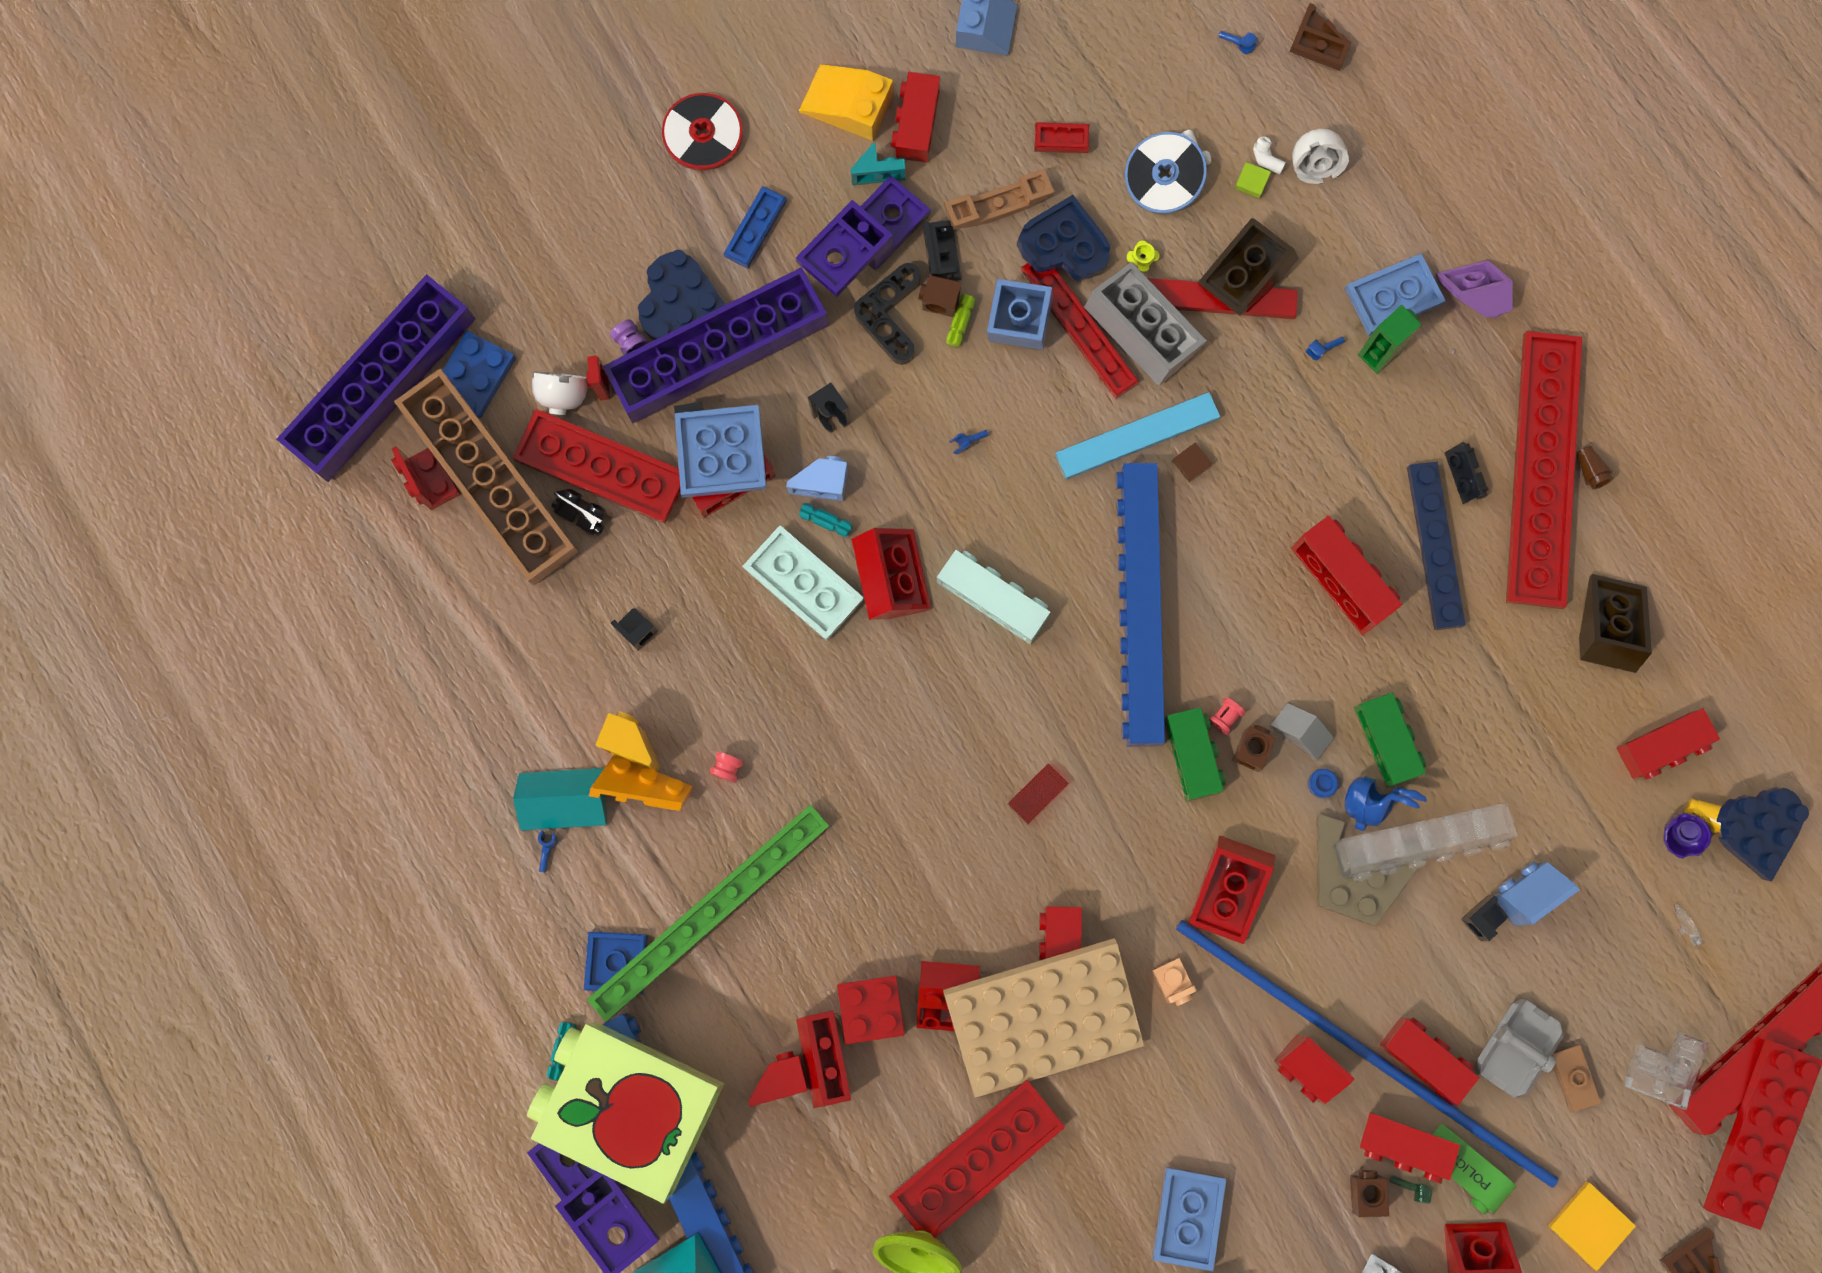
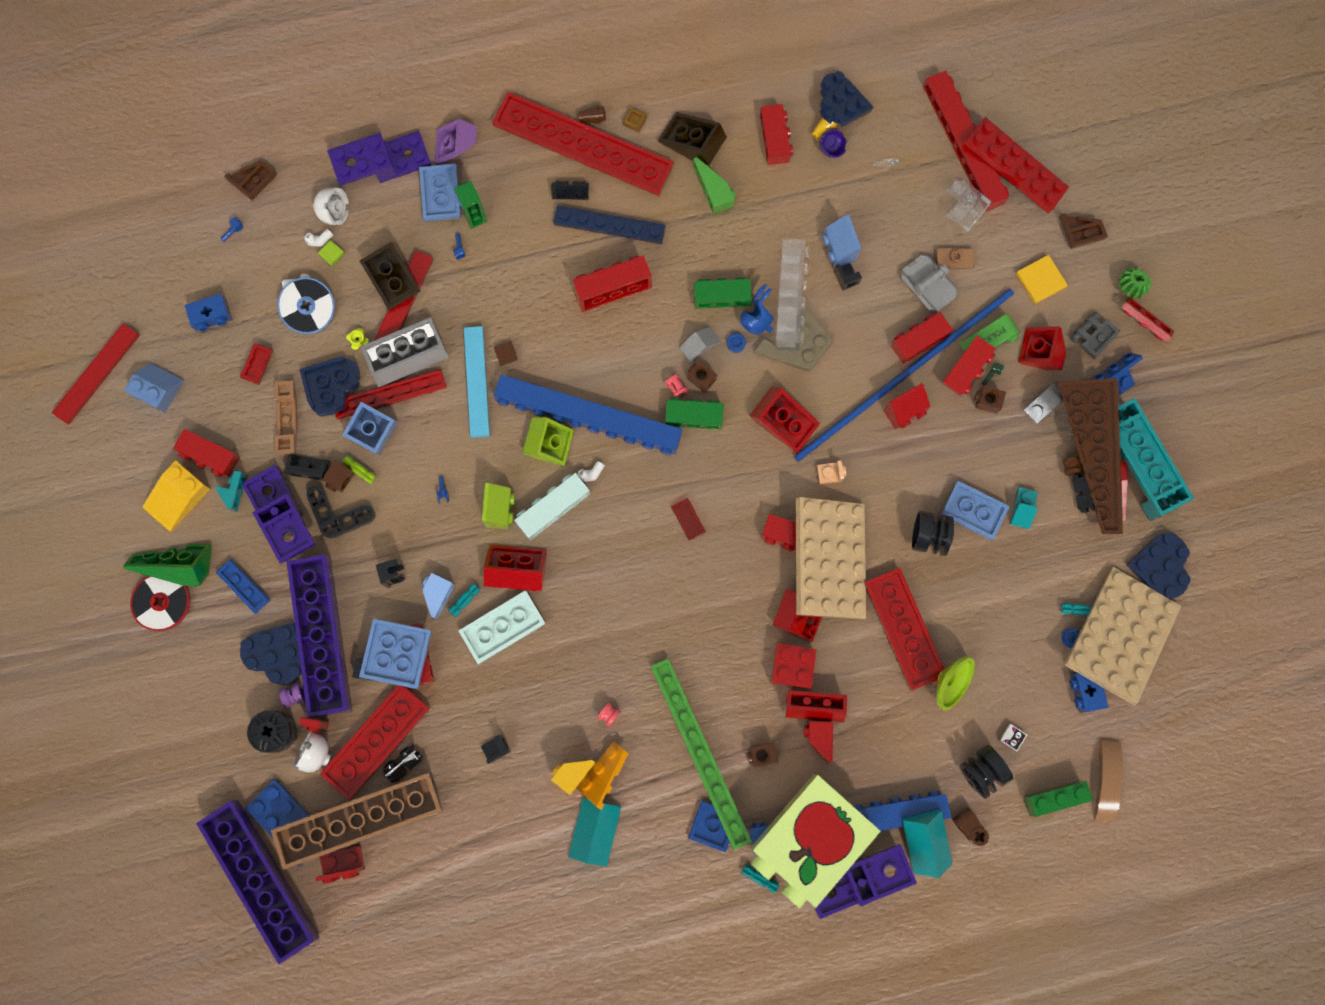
camera: 80 degrees left, 0 degrees up
(546, 847) = (625, 852): blue hand -> none
(575, 342) = (281, 737): none -> black wheel
(744, 1008) = (771, 755): none -> reddish brown brick
(755, 136) = (180, 566): none -> green wedge
(968, 520) = (497, 506): none -> lime slope
(1057, 636) = (591, 475): none -> white arm
(1085, 561) = (548, 441): none -> lime slope
(1110, 51) = (208, 312): none -> blue brick
(1131, 1162) = (937, 533): none -> black wheel
(1413, 194) = (379, 158): none -> dark purple bracket
(1548, 681) = (715, 188): none -> bright green slope
(1611, 531) = (634, 119): none -> pearl gold tile

